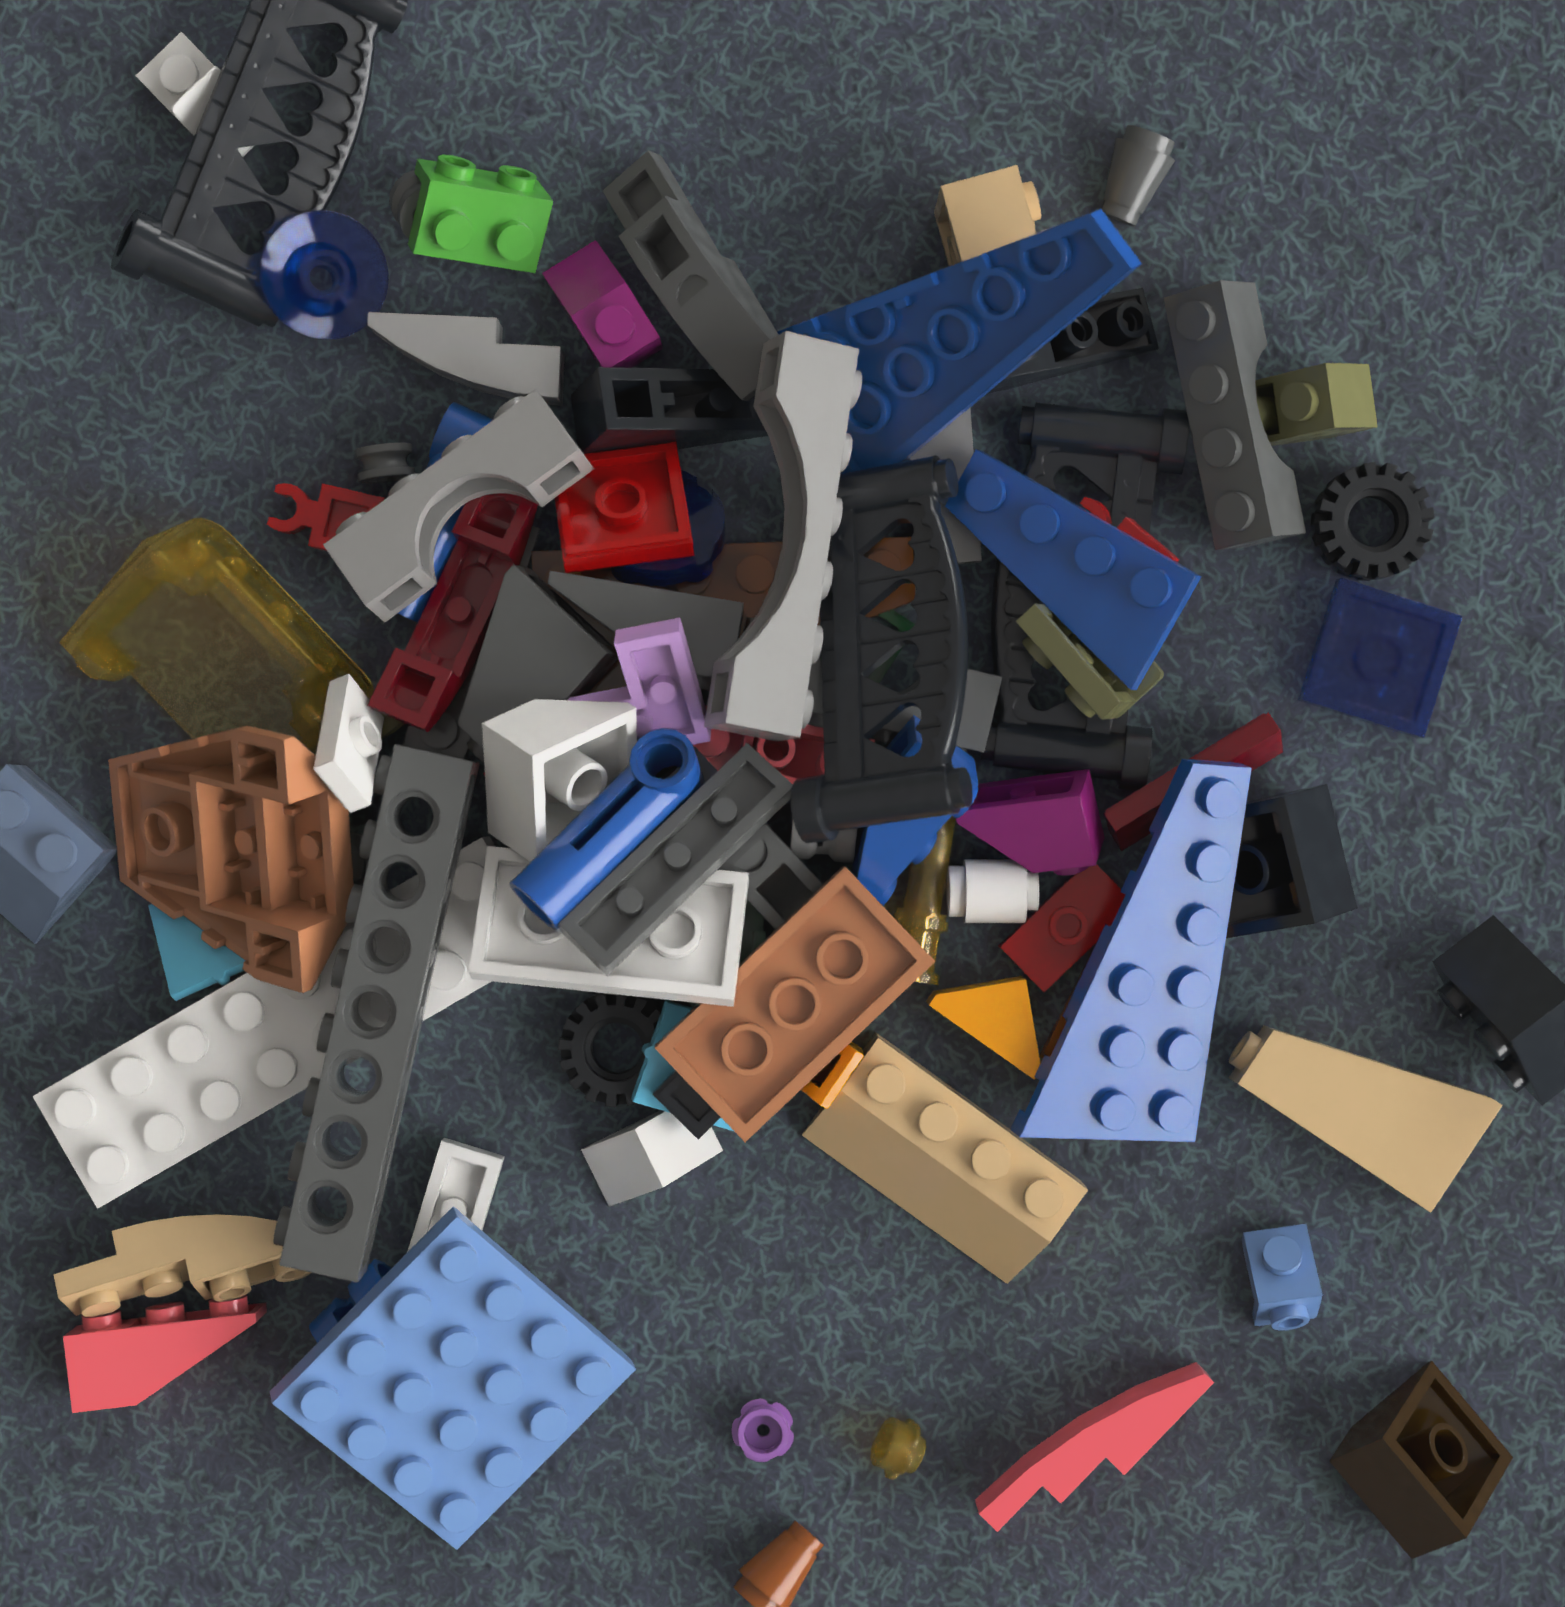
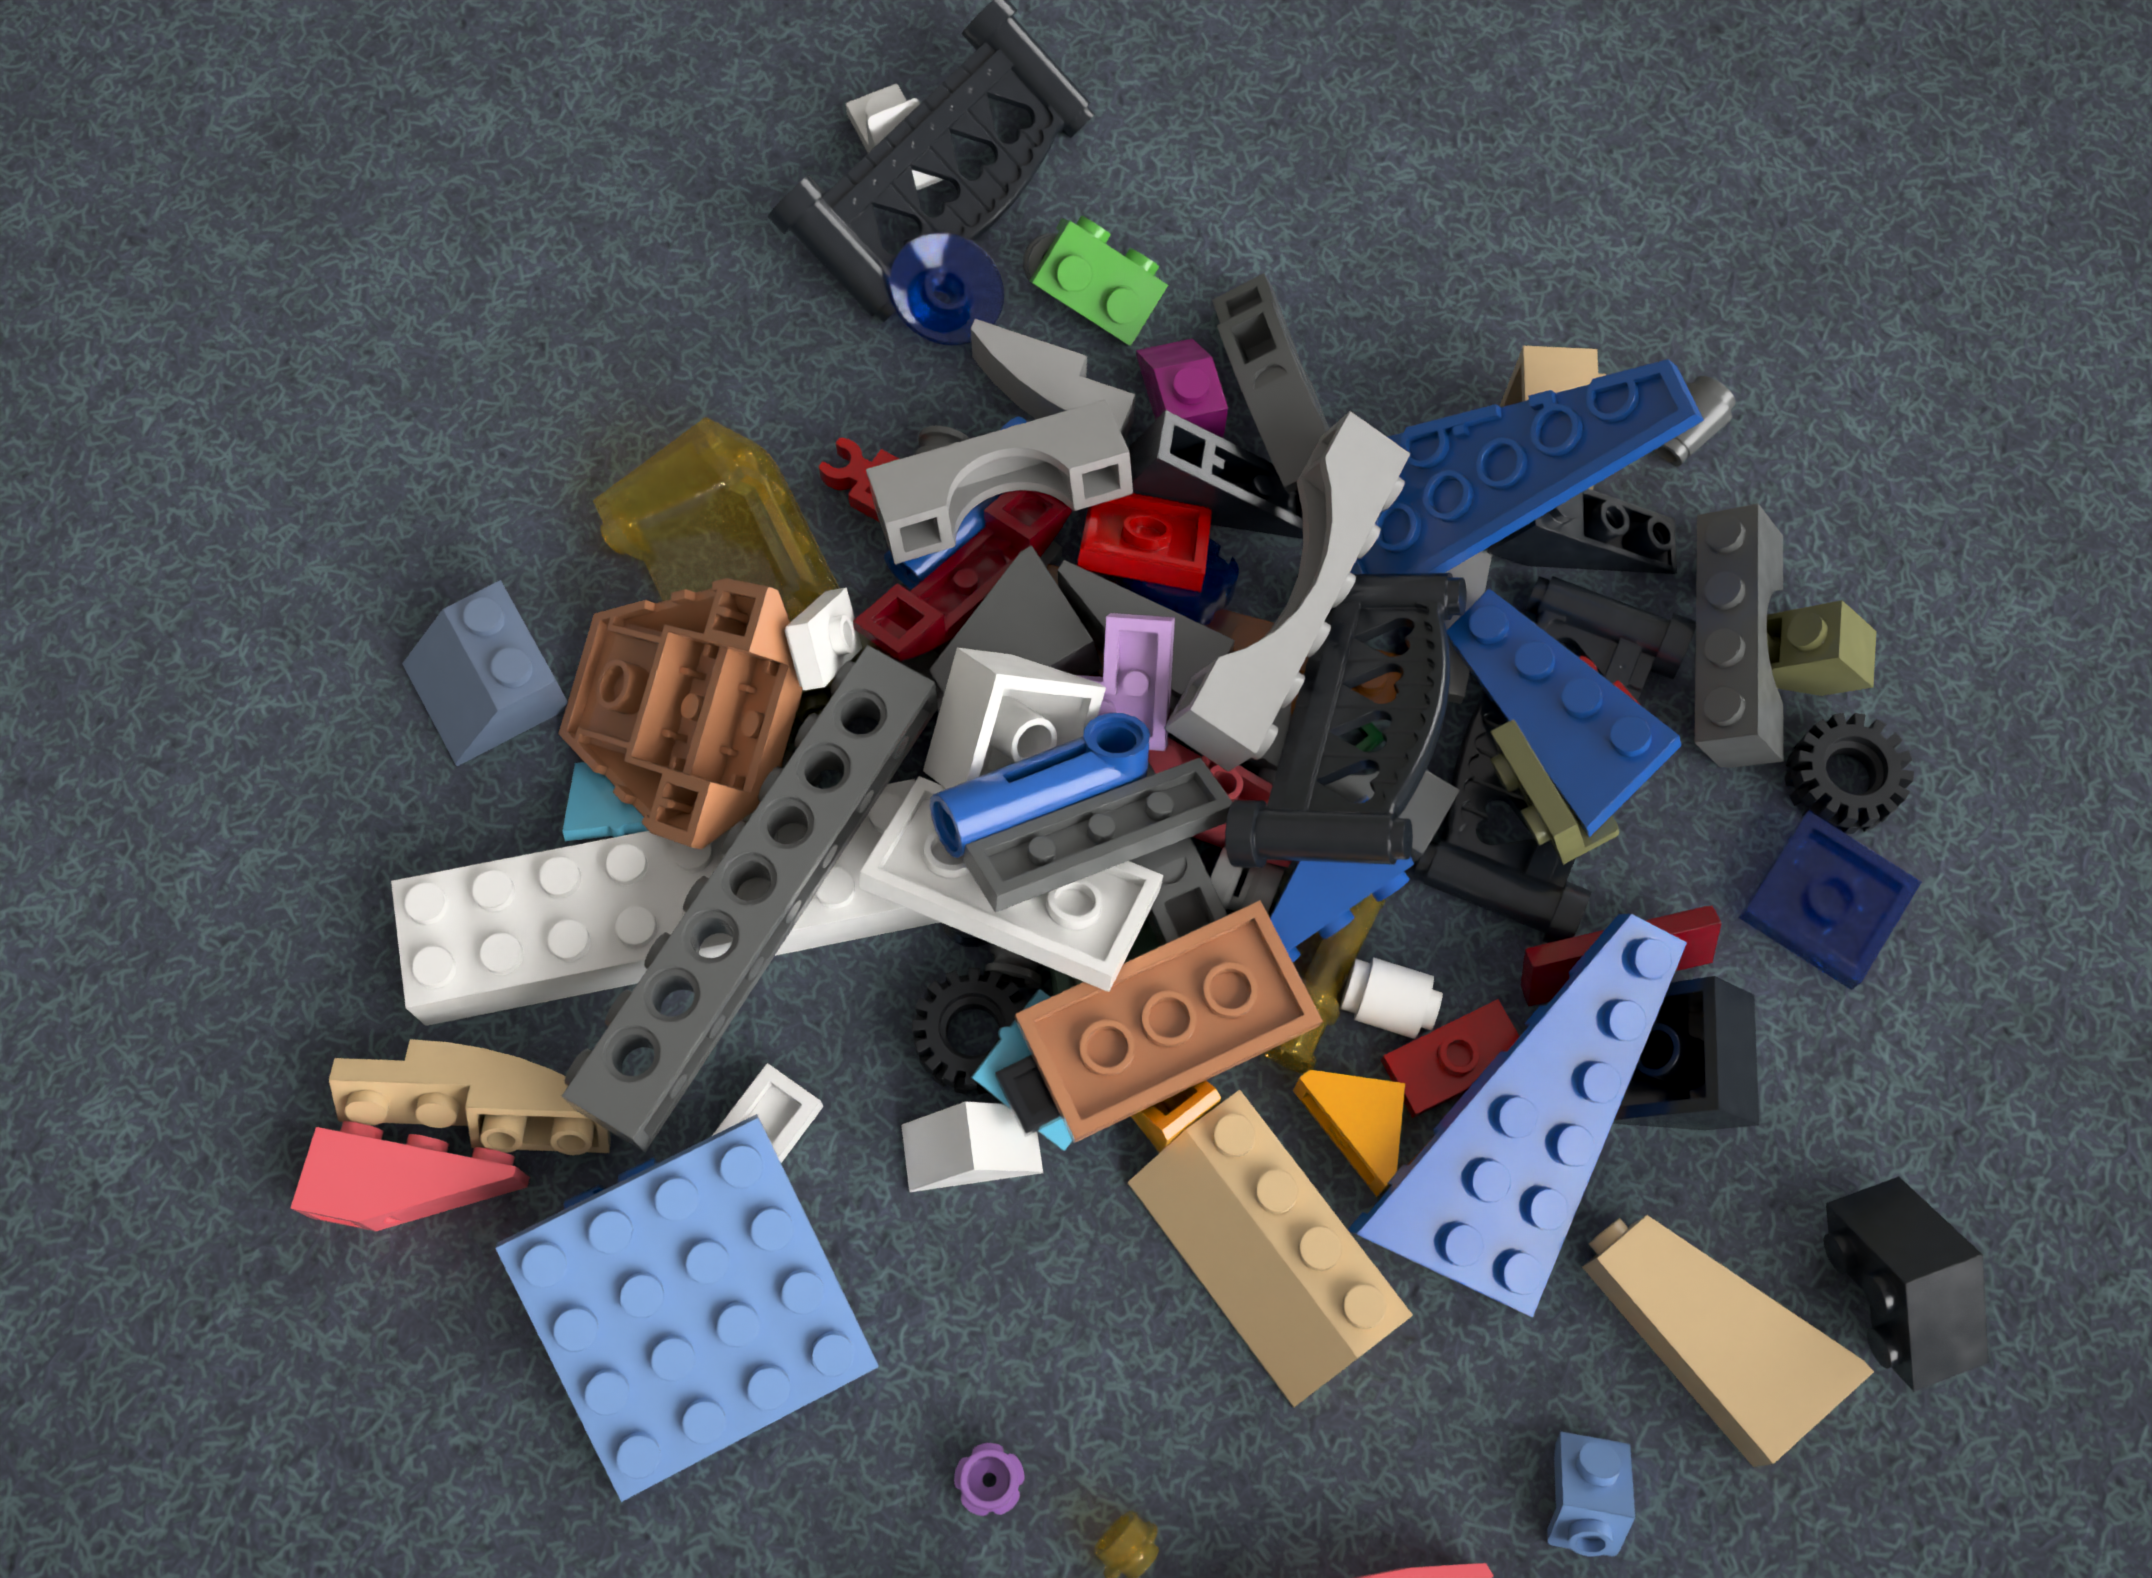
camera: 20 degrees right, 20 degrees down
(1040, 821) = (1459, 942): magenta slope -> none

